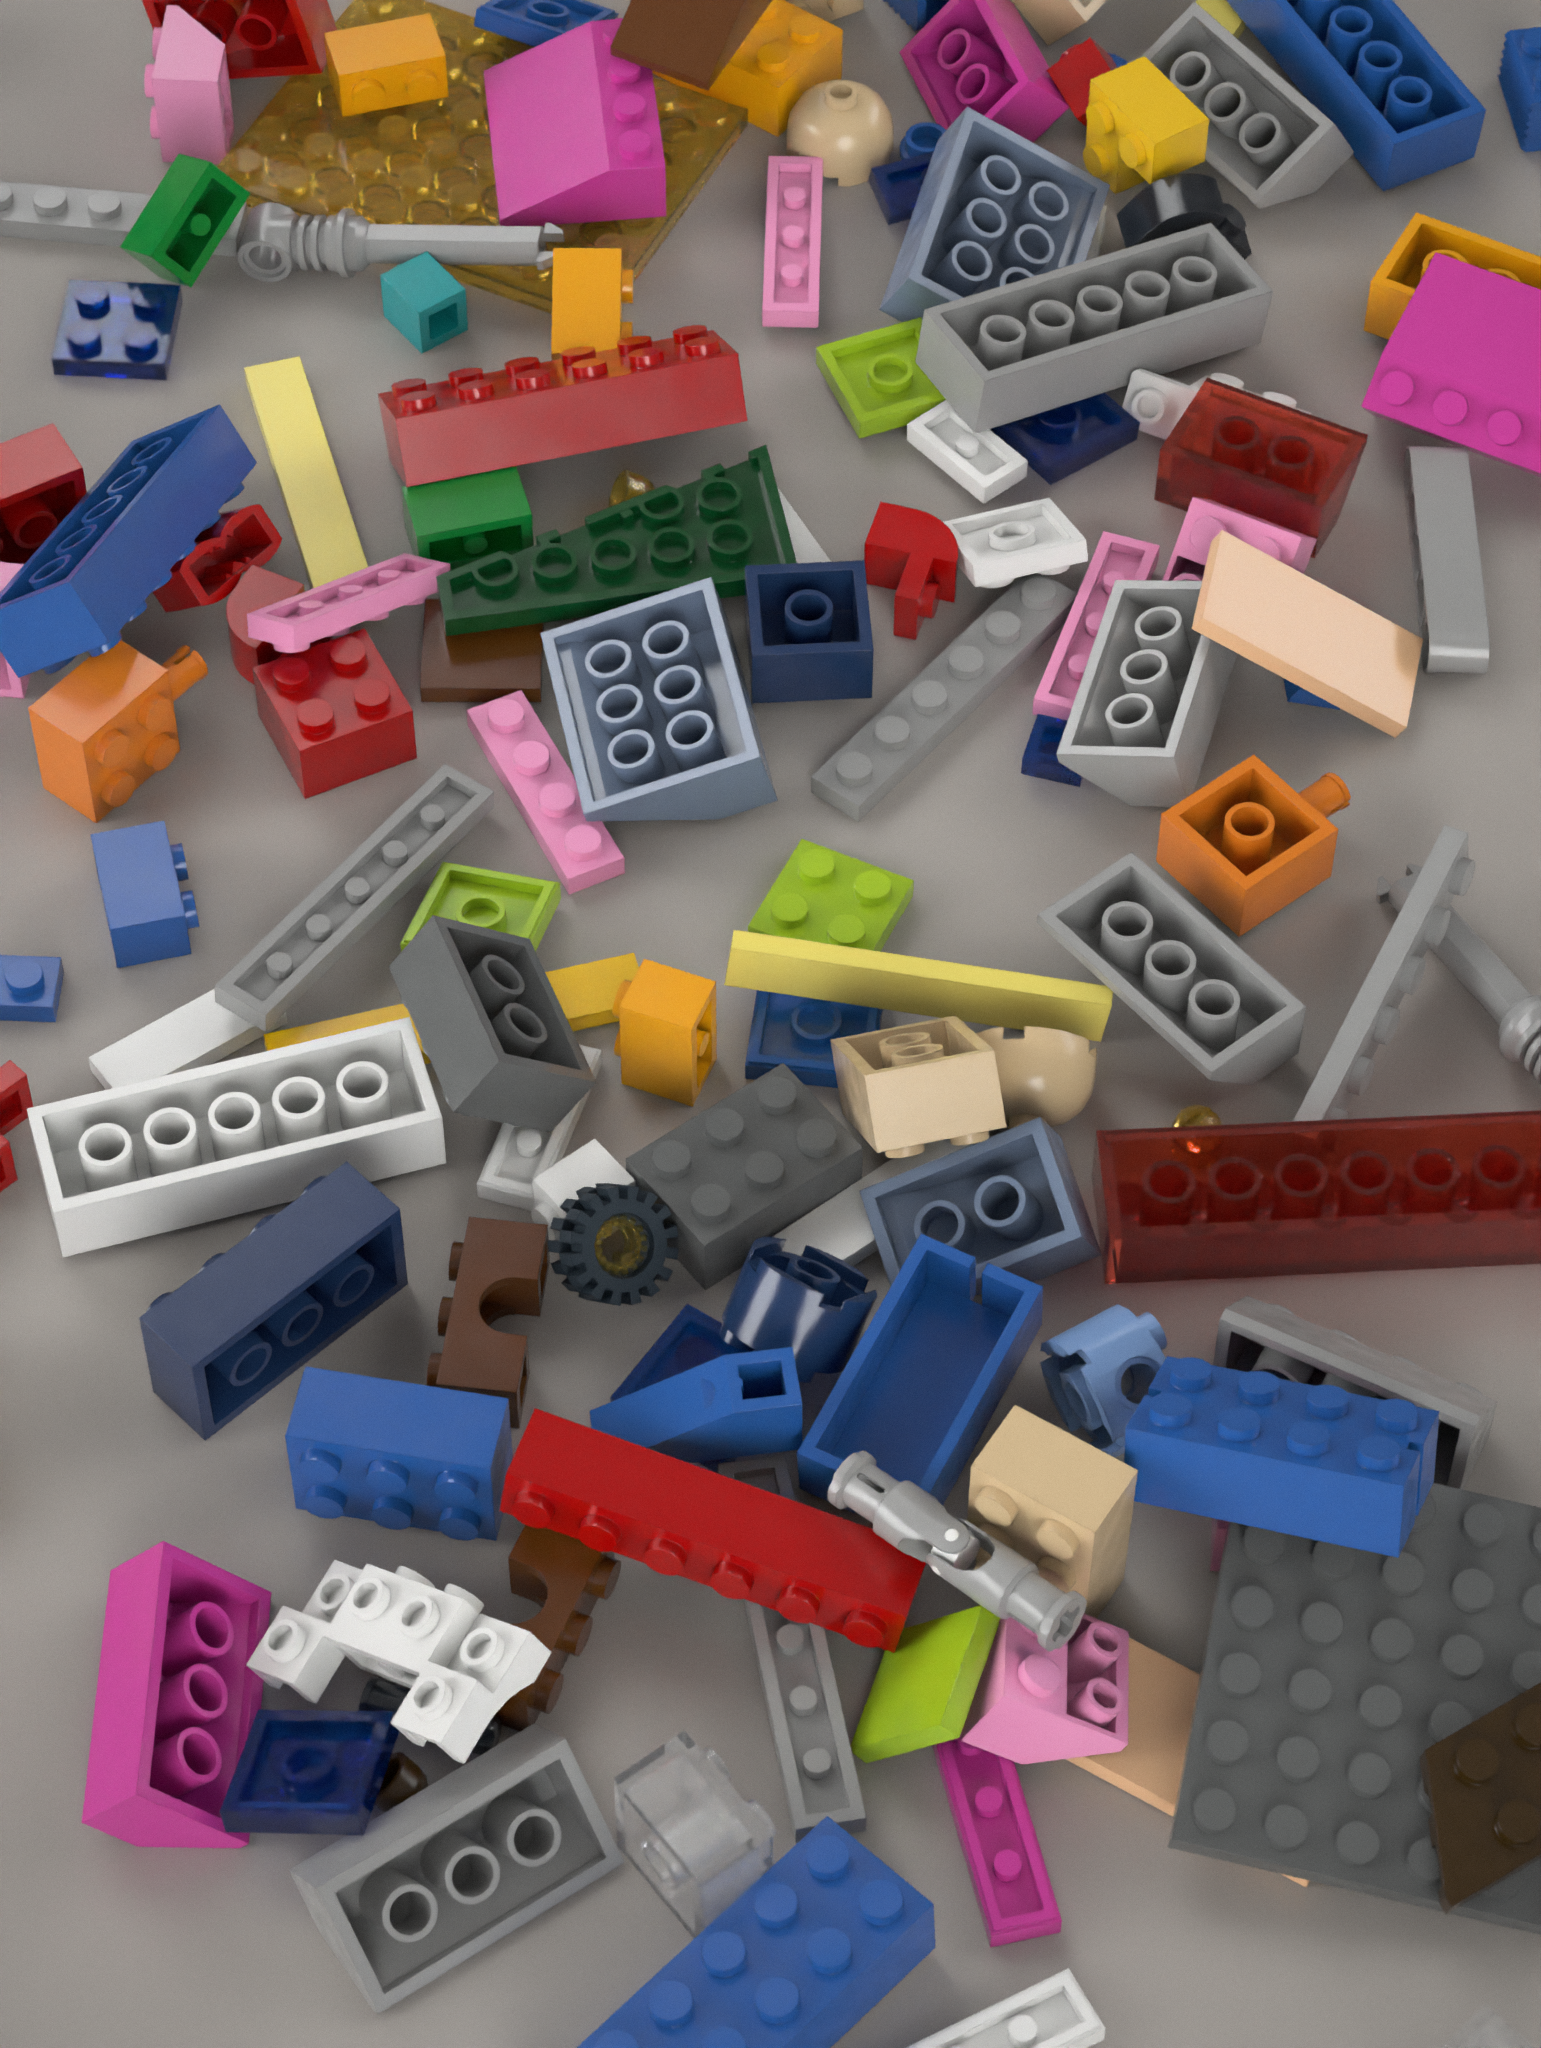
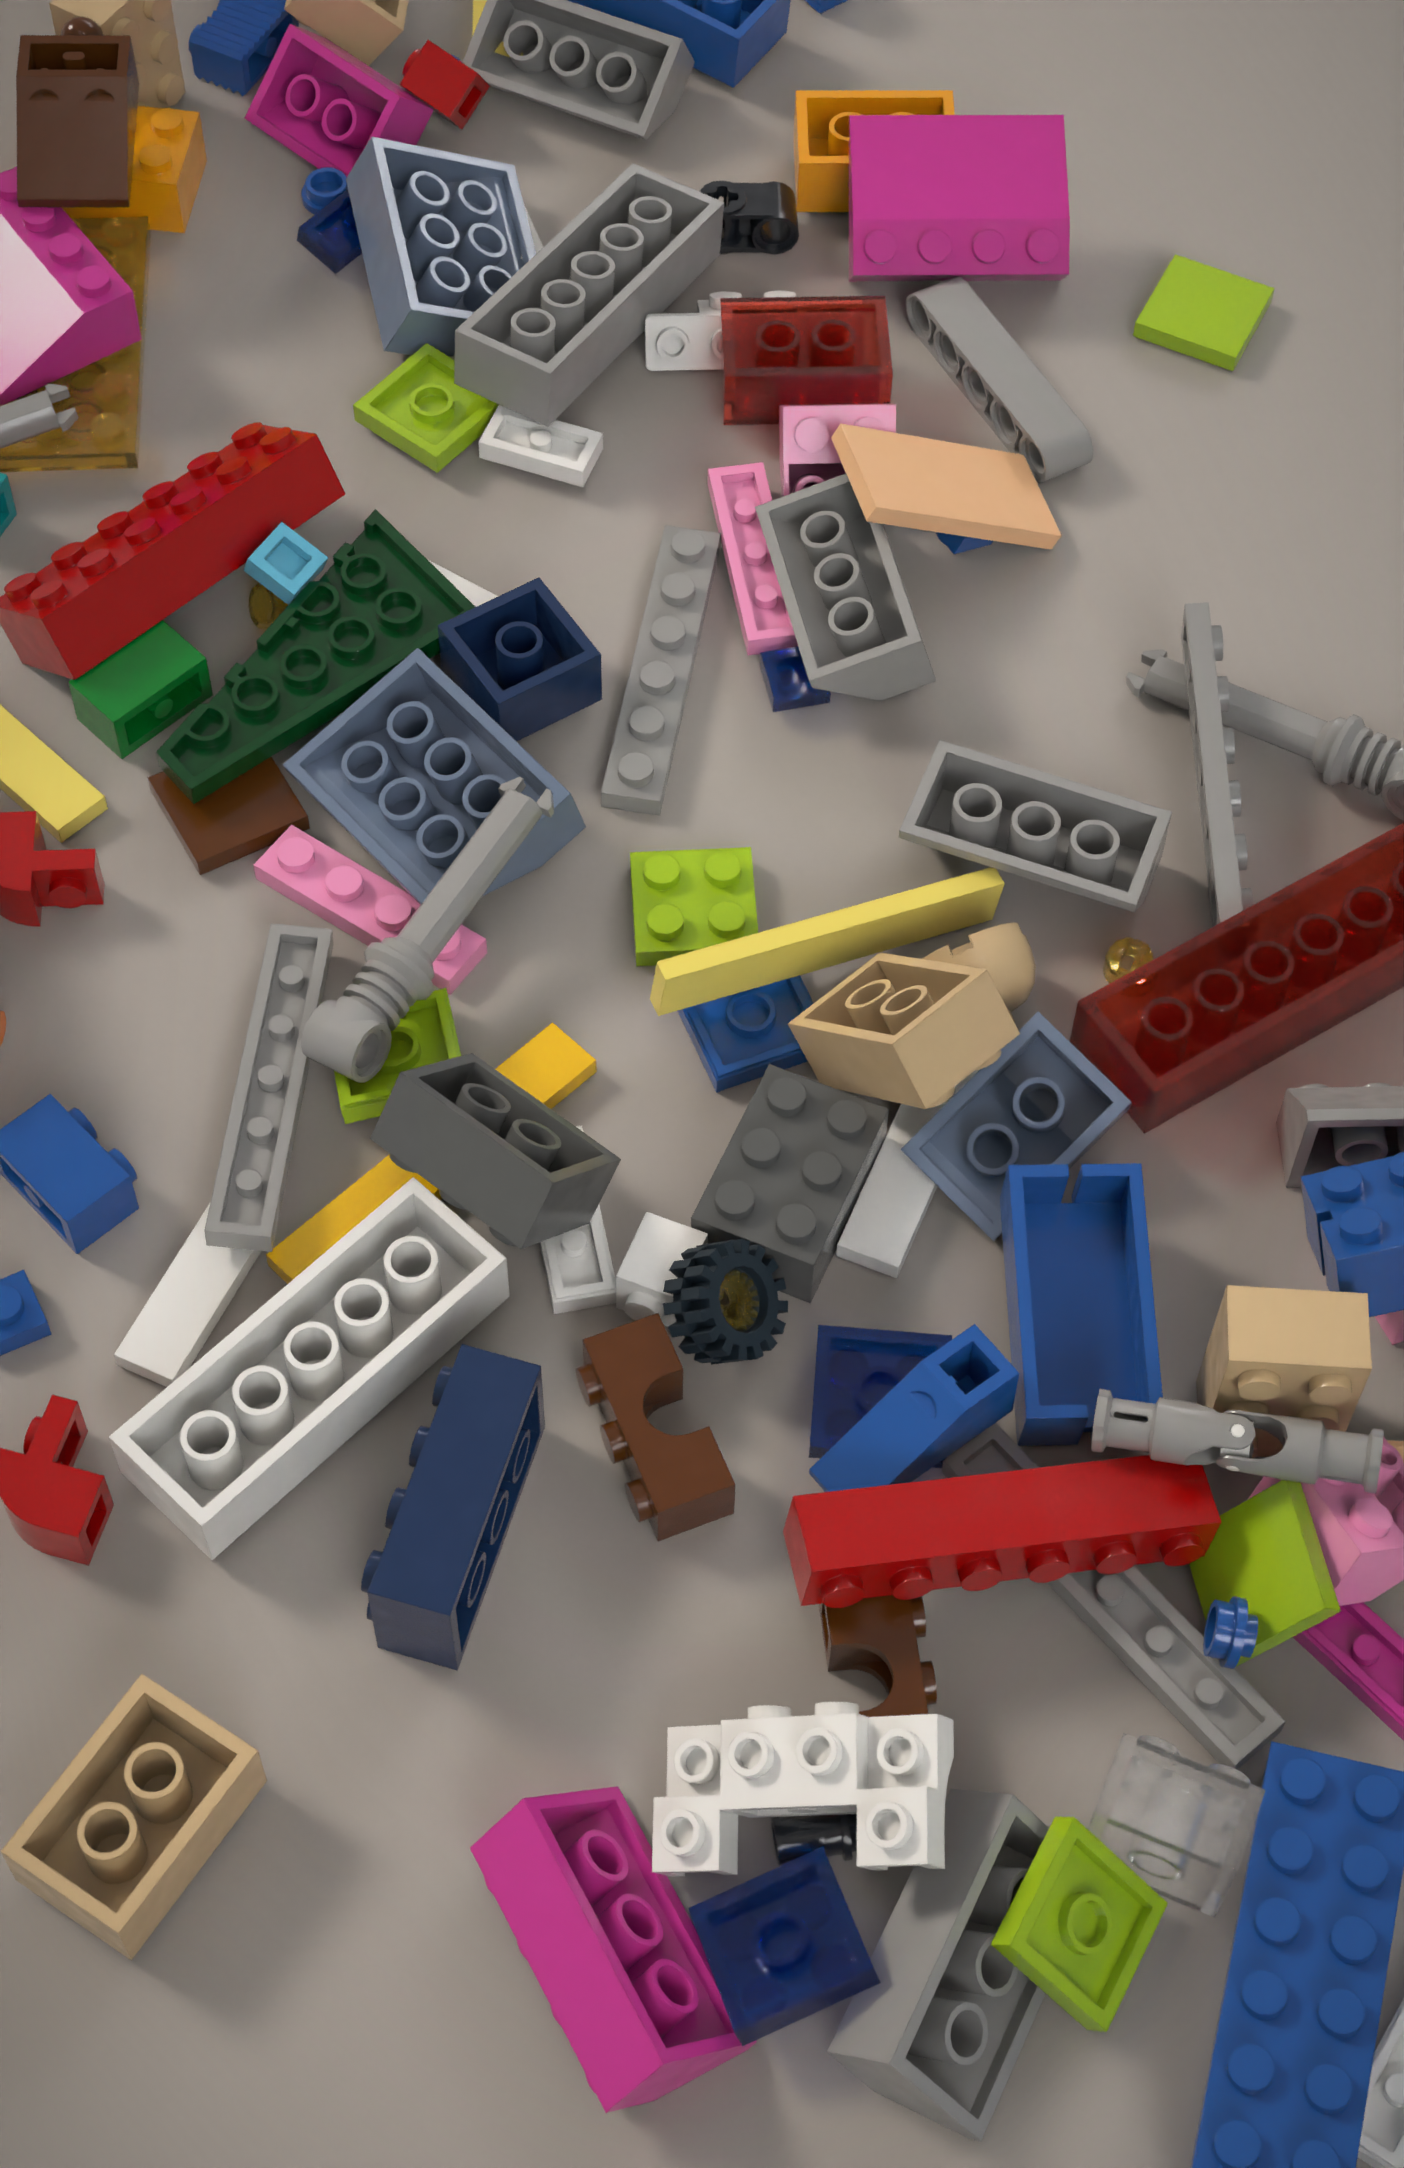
camera: 30 degrees left, 5 degrees up
(335, 713) = (137, 920): red brick -> none
(346, 602) = (91, 811): bright pink plate -> none
(399, 1453) = (672, 1596): blue brick -> none
(400, 1782) = (875, 1915): dark brown hinge -> none
(515, 844) = (356, 1029): none -> light grey piece
(567, 1880) = (1080, 1924): none -> lime plate
(589, 299) = (129, 443): light orange brick -> none
(651, 458) = (285, 563): none -> medium azure plate
(666, 1031) = (643, 1082): light orange brick -> none
(792, 242) = (266, 320): bright pink plate -> none
(798, 1303) = (928, 1282): dark blue brick -> none
(843, 126) = (244, 207): tan cylinder -> none
(859, 1715) = (1230, 1632): none -> blue plate
(916, 558) = (568, 558): red brick -> none
(1017, 543) = (640, 510): white plate -> none
(1070, 436) = (621, 397): clear blue plate -> none
(1103, 1372) = (1231, 1217): medium blue brick -> none
(1141, 127) = (517, 102): yellow brick -> none
(1179, 205) = (586, 168): black brick -> none
(1251, 841) = (1015, 687): orange brick -> none
(1311, 317) = (756, 216): none -> black piece

